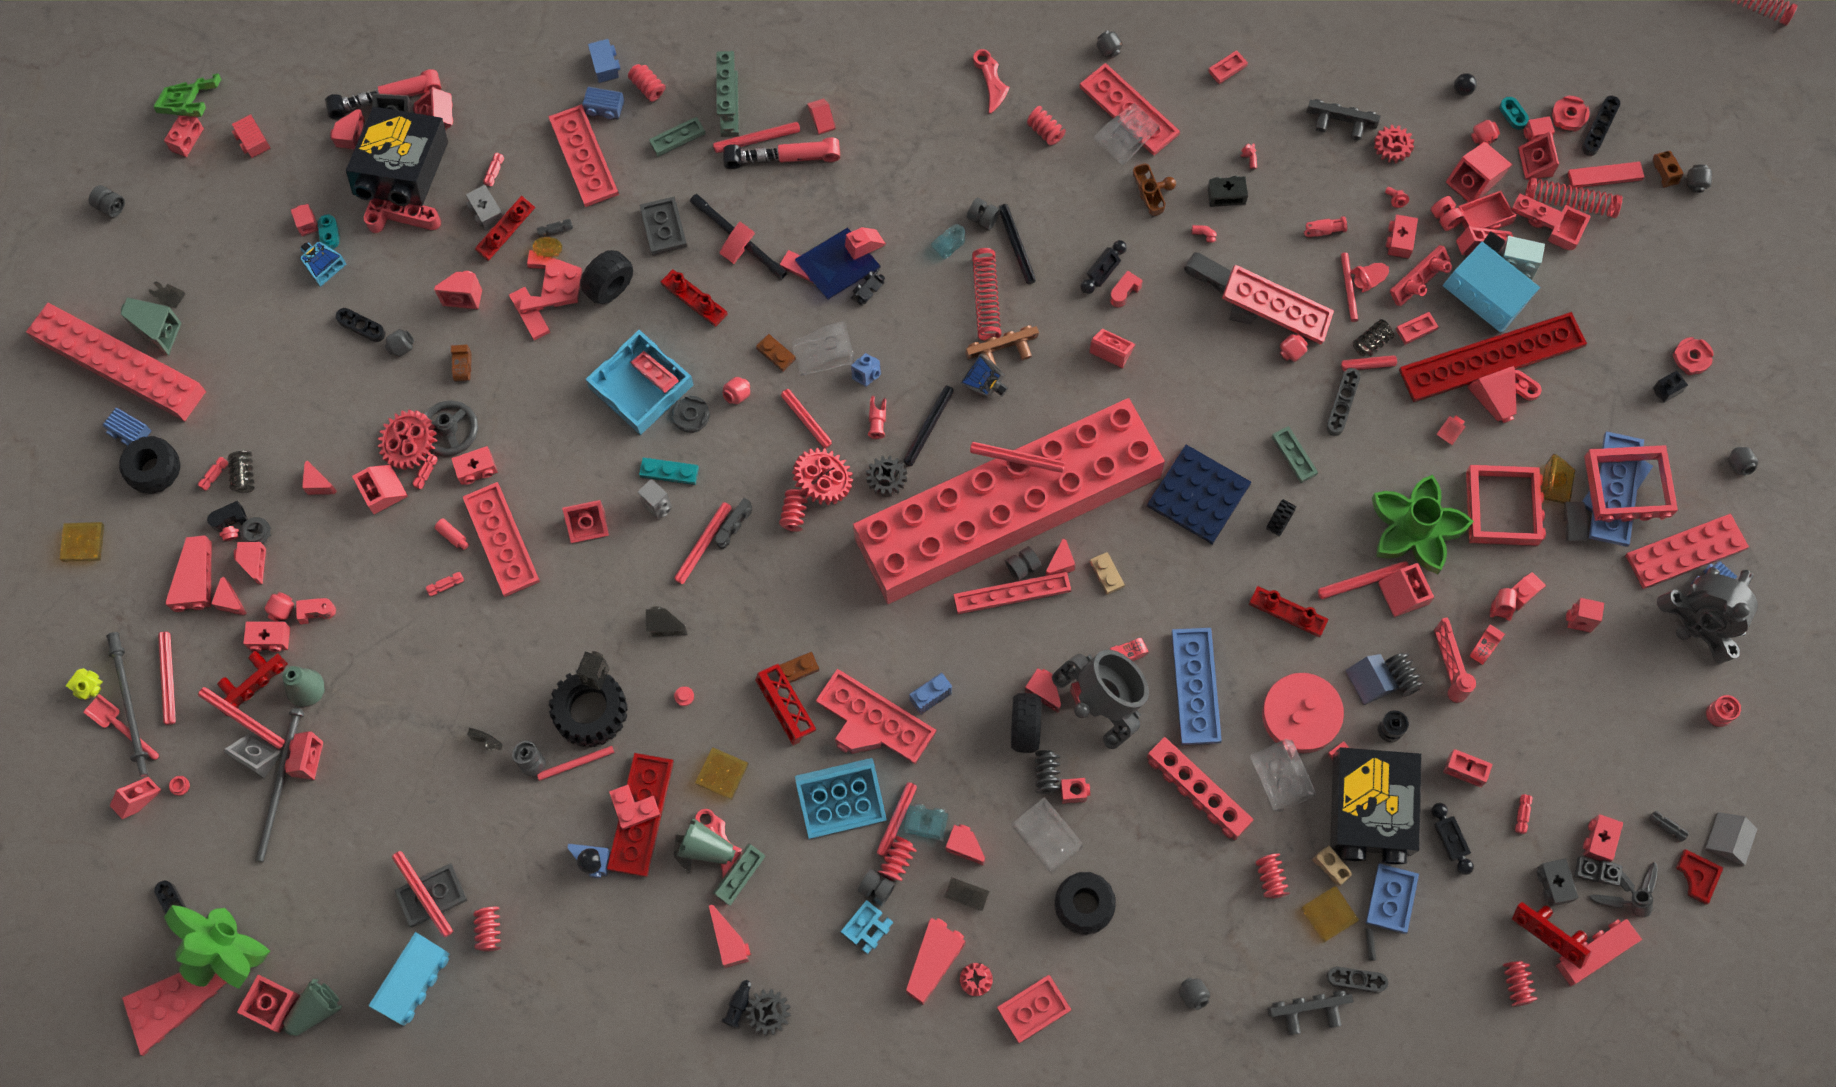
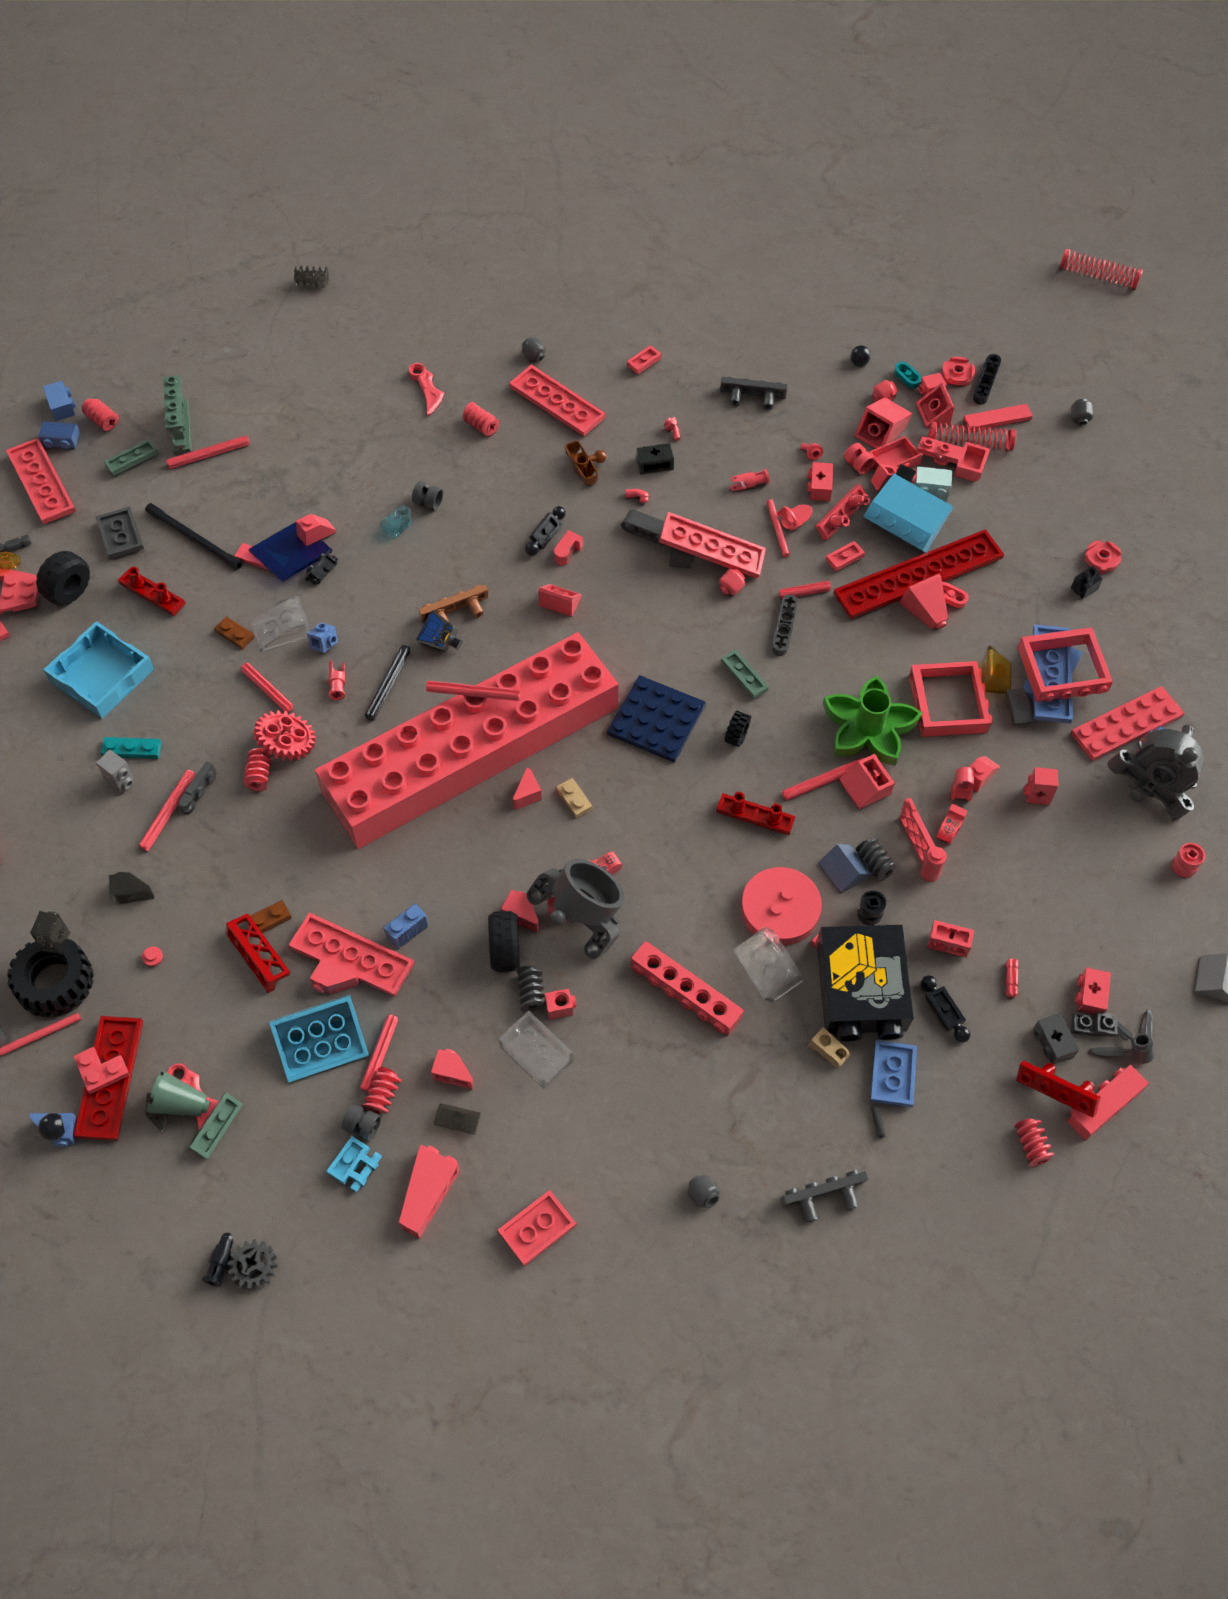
camera: 10 degrees left, 10 degrees down
(585, 521) = (46, 799): coral slope -> none
(654, 371) = (113, 658): coral tile -> none
(691, 414) = (152, 694): dark grey tile -> none
(722, 773) = (194, 1027): clear yellow plate -> none
(730, 944) = (208, 1197): coral slope -> none
(735, 243) = (189, 541): coral slope -> none
(736, 390) = (196, 668): coral head -> none
(821, 116) = (269, 430): coral slope -> none
(827, 150) = (273, 456): piece -> none
(890, 468) = (349, 729): dark grey gear -> none
(915, 822) = (399, 1055): clear light blue brick -> none
(984, 984) = (467, 1213): coral gear -> none
(985, 261) = (430, 537): coral piece -> none
(1012, 593) = (481, 824): coral plate -> none
(1017, 244) = (462, 520): black axle -> none
(1022, 564) = (492, 794): dark grey wheel -> none
(1085, 883) = (580, 1093): black tyre -> none
(1126, 133) = (555, 418): clear slope -> none
(1196, 686) = (673, 892): medium blue plate -> none
(1271, 876) = (768, 1065): coral piece -> none
(1330, 914) = (833, 1096): clear yellow plate -> none
(1371, 986) = (853, 1152): dark grey beam -> none
(1373, 338) = (805, 567): clear smoke piece -> none
(1396, 143) = (803, 407): coral gear -> none
(1451, 429) = (890, 638): coral bracket -> none
(1668, 168) = (1053, 407): dark orange leg -> none
(1669, 826) = (1155, 973): dark grey axle -> none
(1700, 874) = (1195, 1017): red tile -> none
(1743, 460) = (1165, 639): dark grey head -> none

